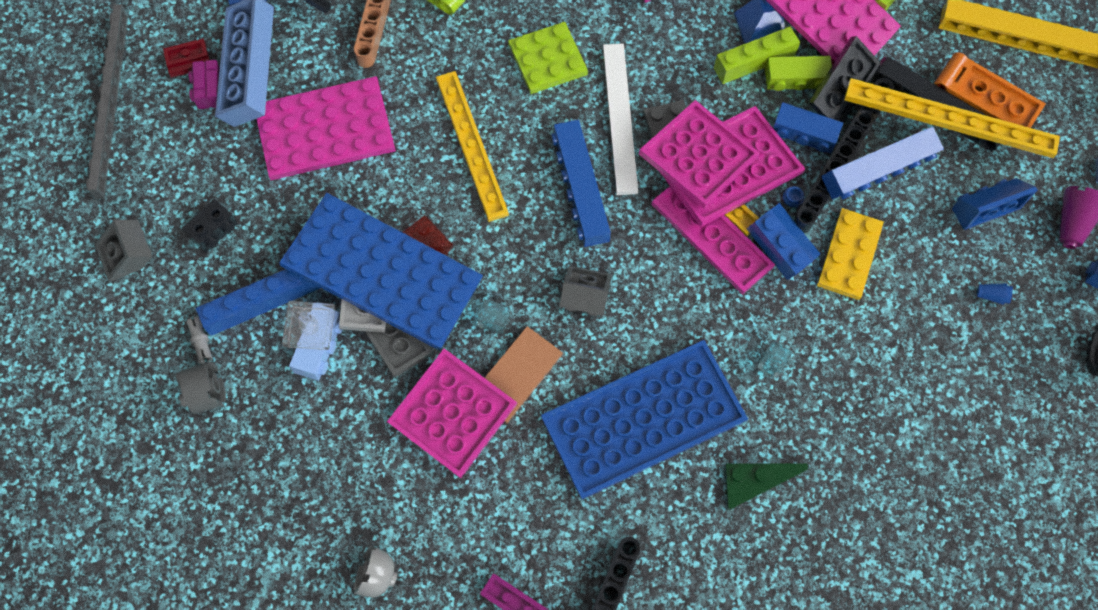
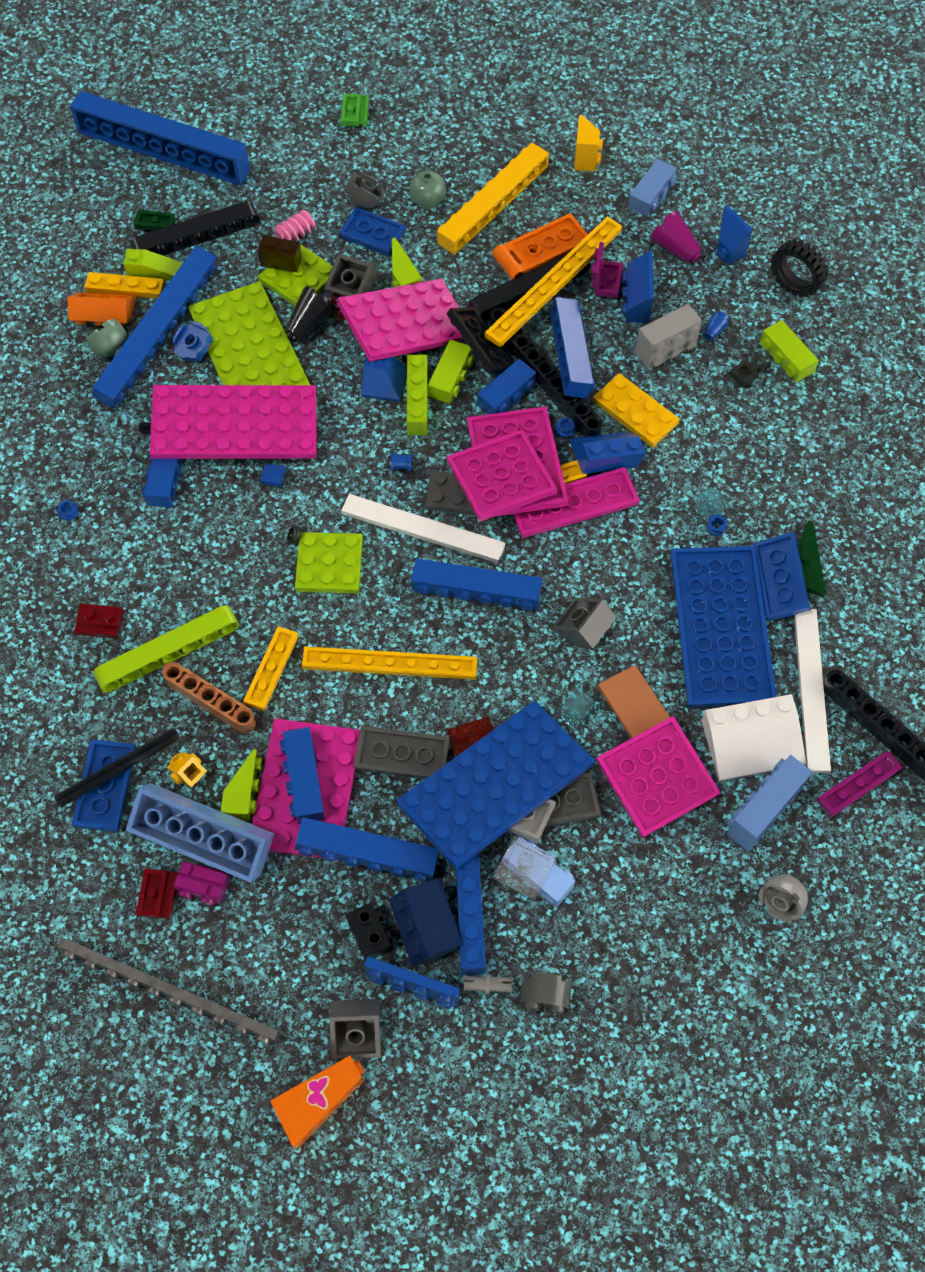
camera: 65 degrees left, 5 degrees down
(49, 242) = (314, 1100): none -> orange slope
(172, 275) = (406, 980): none -> blue plate
(228, 263) = (425, 922): none -> dark blue slope
(278, 188) = (366, 849): none -> blue brick
(298, 78) = (240, 792): none -> lime slope
(299, 29) = (186, 769): none -> yellow brick
(326, 115) = (303, 775): none -> blue brick
(386, 186) = (400, 752): none -> dark grey plate
(422, 54) = (271, 668): none -> yellow plate
(463, 523) = (768, 802): none -> medium blue brick
(533, 491) = (753, 736): none -> white slope
(560, 18) = (294, 534): none -> pearl dark grey piece
(613, 531) = (812, 692): none -> white tile
(678, 71) = (401, 461): none -> blue bush
(724, 456) = (781, 577): none -> blue plate
(758, 370) = (716, 519): none -> blue bush
(950, 248) = (668, 336): none -> light grey brick
(955, 342) = (747, 372): none -> pearl dark grey plate
(992, 162) = (607, 275): none -> magenta bracket
(1005, 375) = (789, 351): none -> lime brick

